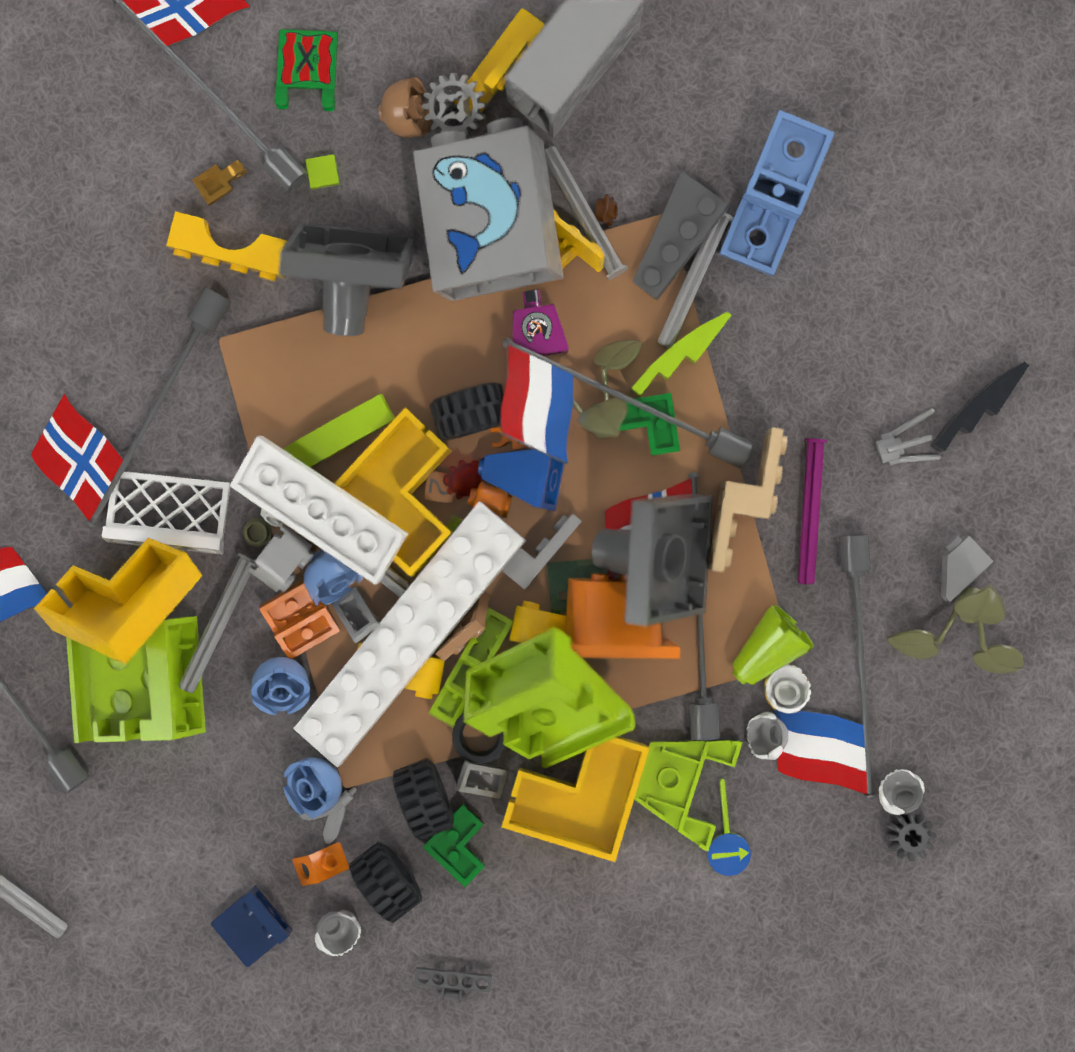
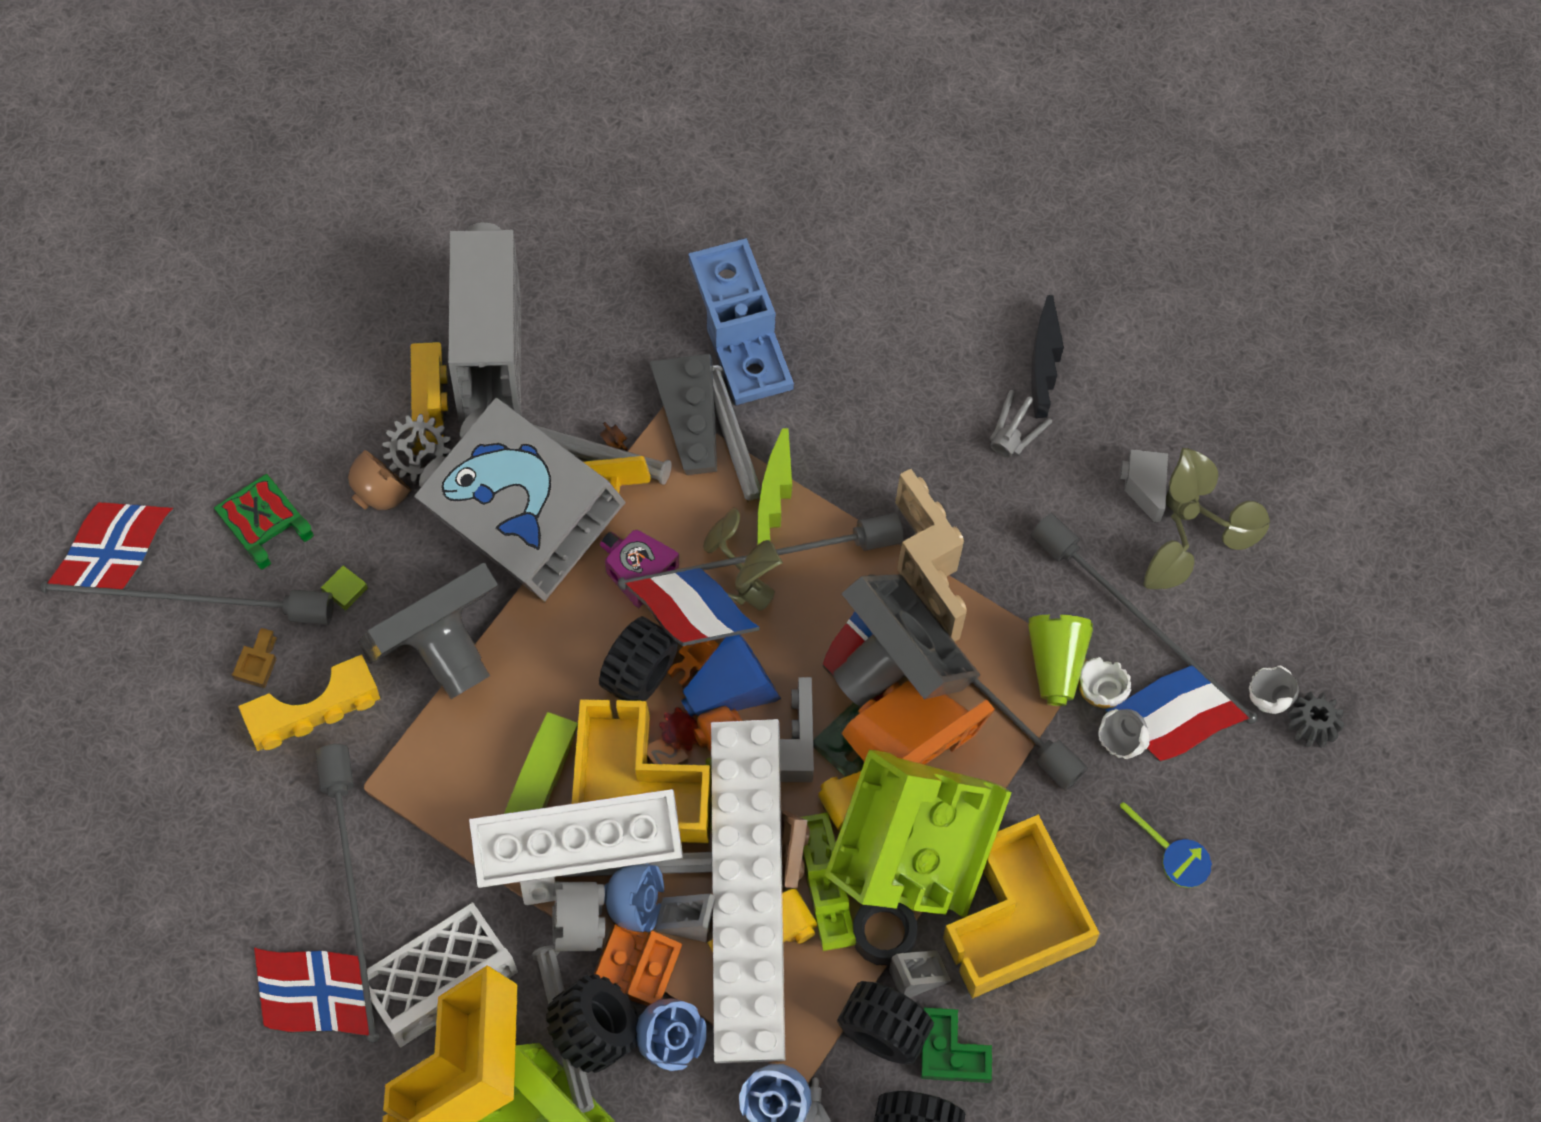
camera: 45 degrees left, 25 degrees down
(217, 631) = (592, 1023): none -> black tyre
(257, 532) = (534, 924): olive plate -> none
(661, 433) = (811, 564): green plate -> none
(671, 781) = (1085, 838): lime wing -> none
(810, 510) = (989, 534): magenta axle -> none

